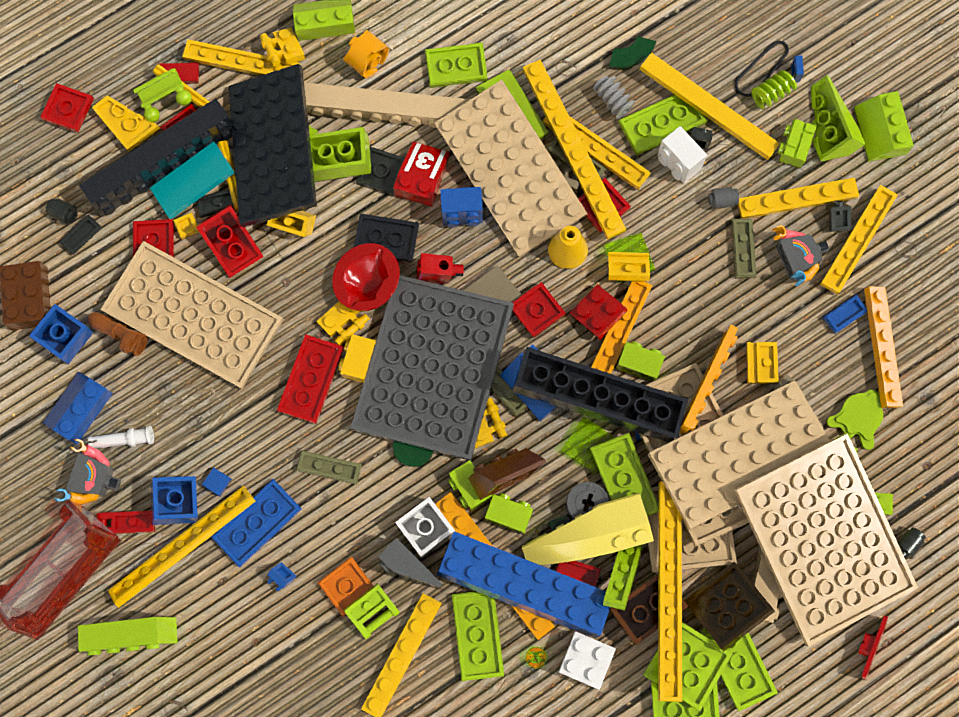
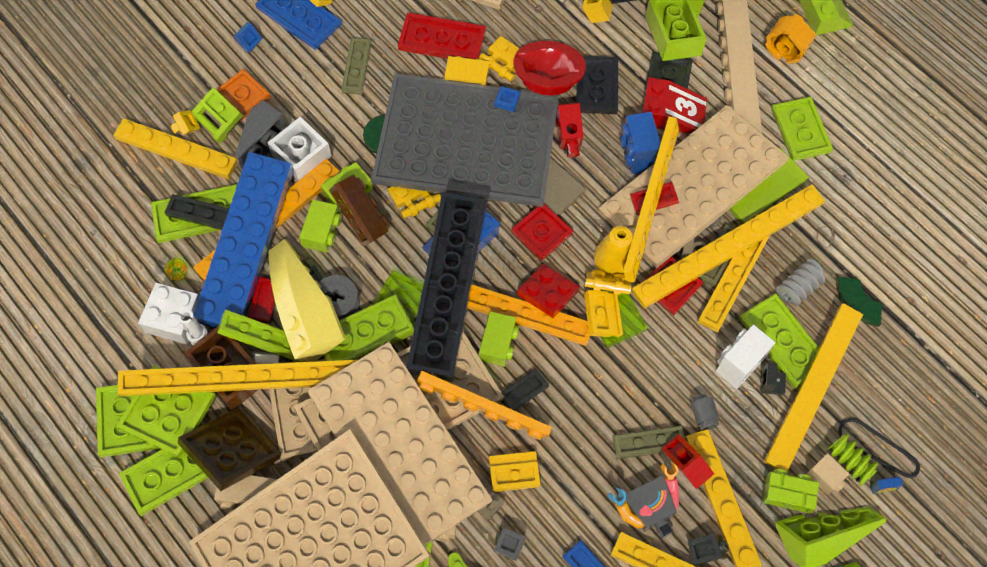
camera: 80 degrees right, 10 degrees down
(378, 643) = (185, 123): none -> yellow tile
(396, 322) = (507, 99): none -> blue tile
(481, 630) = (196, 212): none -> pearl dark grey tile
(523, 203) = (667, 198): none -> red tile
(530, 203) = (651, 200): none -> yellow tile
(598, 258) = (616, 283): none -> yellow plate
(608, 637) = (195, 331): none -> white pin
(642, 573) = (264, 357): none -> white tile
(688, 345) = (524, 390): none -> pearl dark grey tile
(768, 218) = (688, 461): none -> red slope
(785, 111) = (829, 474): none -> tan brick
(827, 373) = (509, 544): none -> dark grey tile

